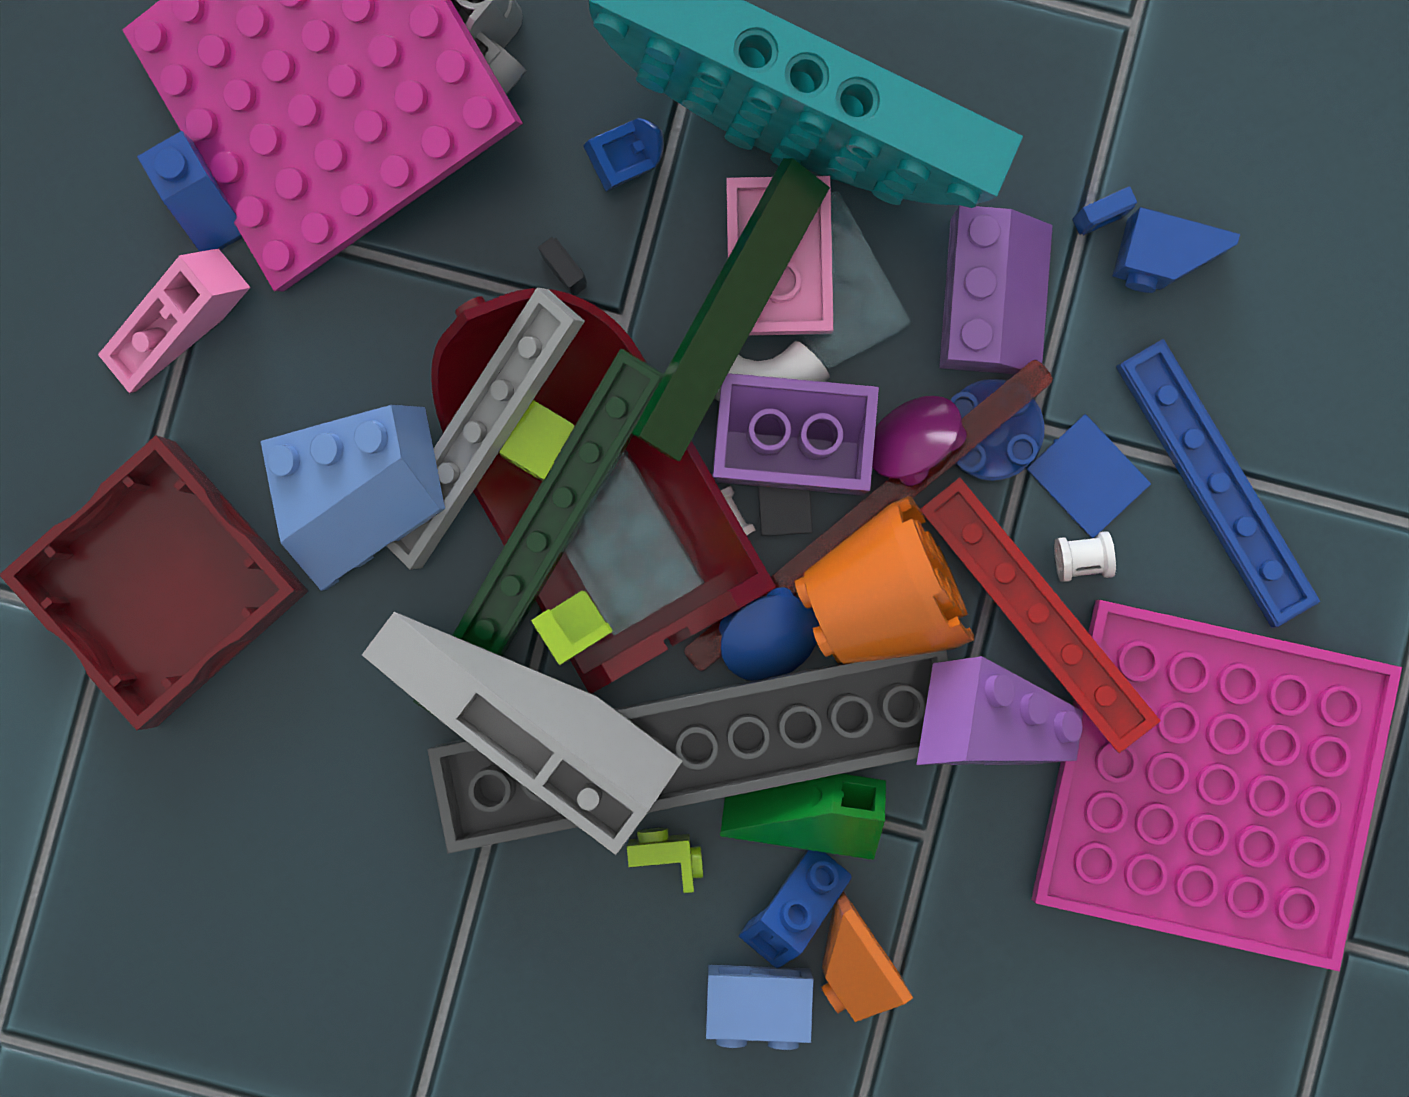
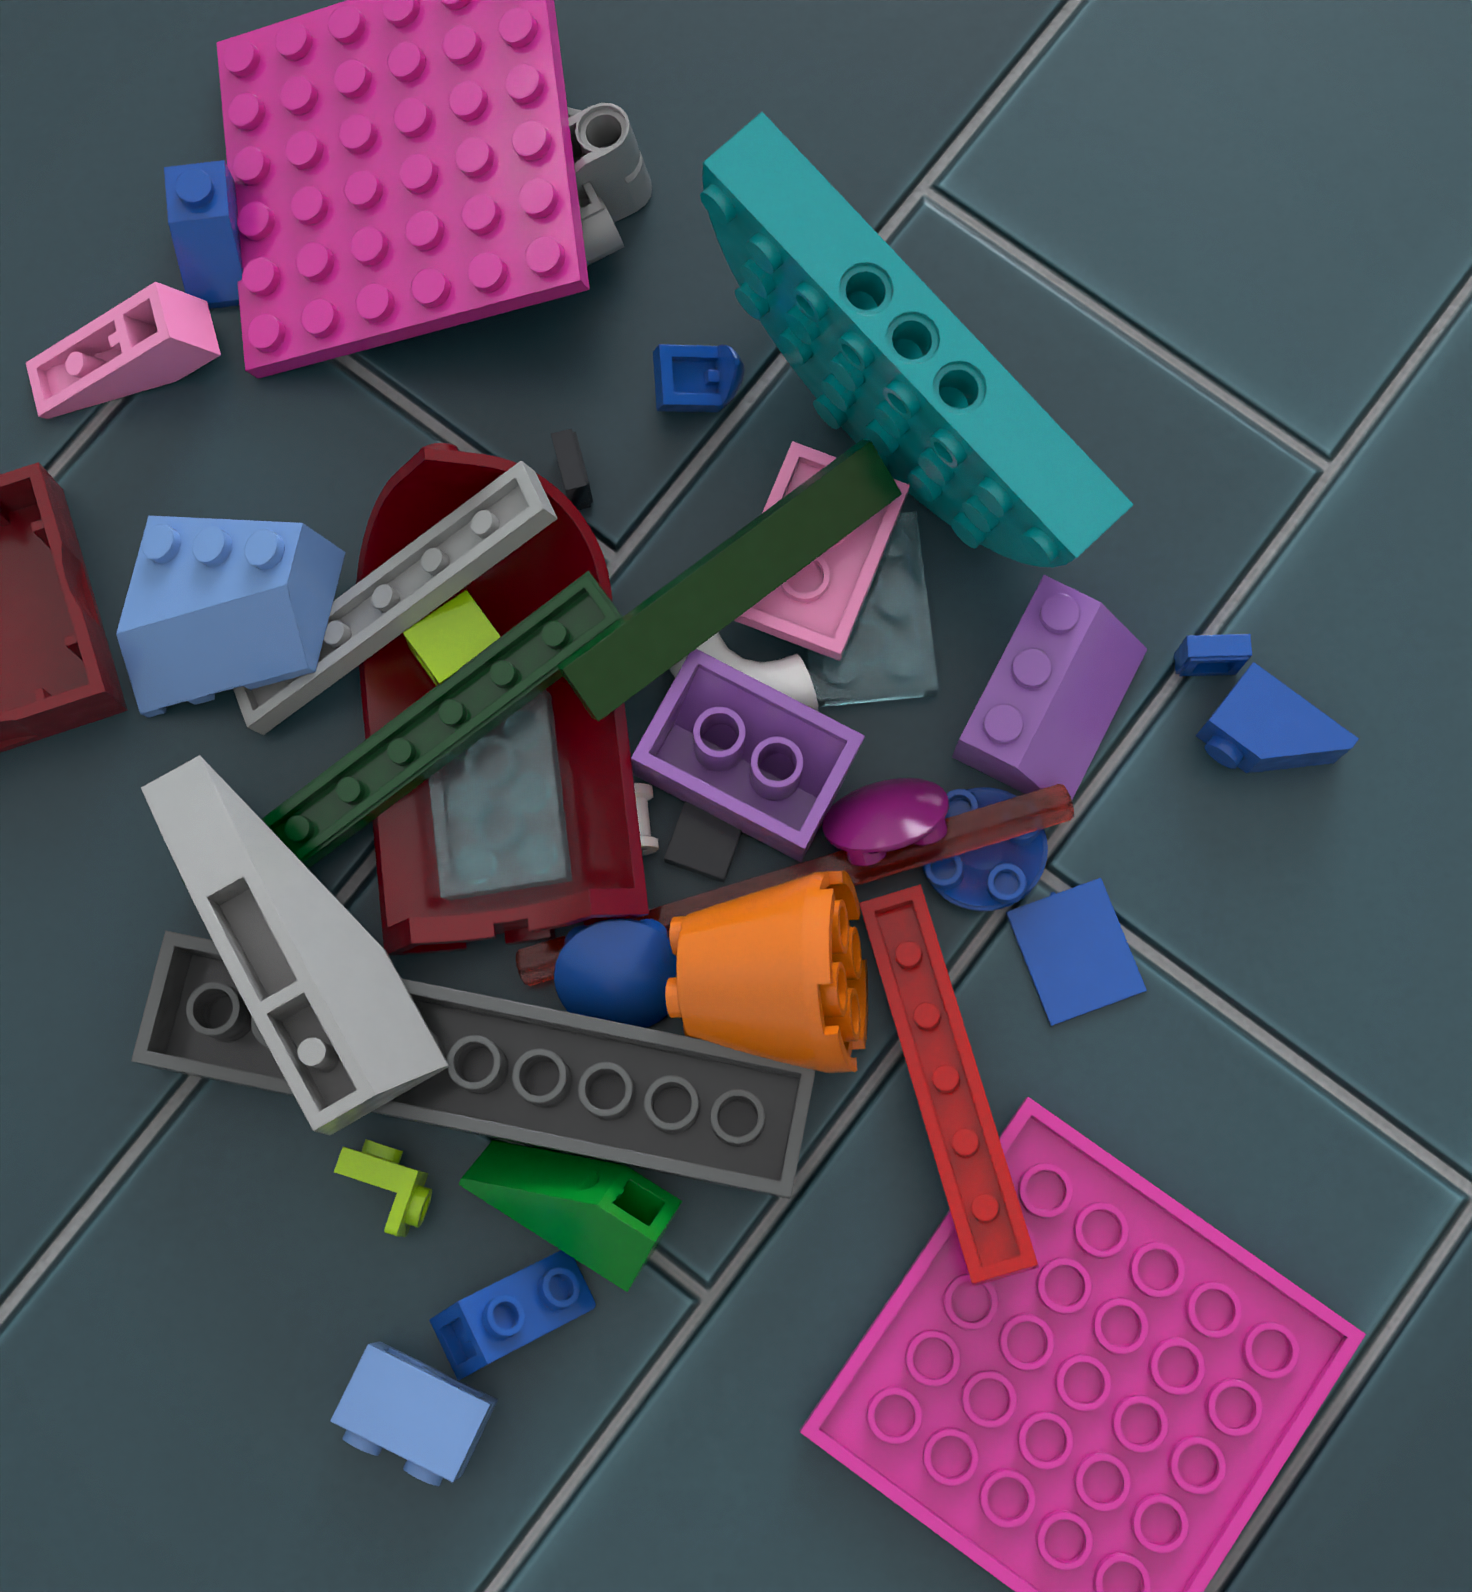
camera: 25 degrees right, 10 degrees down
(571, 627) = (394, 866): lime panel -> none
(858, 968) = (553, 1413): orange slope -> none
(994, 718) = (838, 1175): medium lavender wedge -> none
(1085, 557) = (1031, 1040): white bush -> none
(1218, 484) = (1226, 1026): blue tile -> none

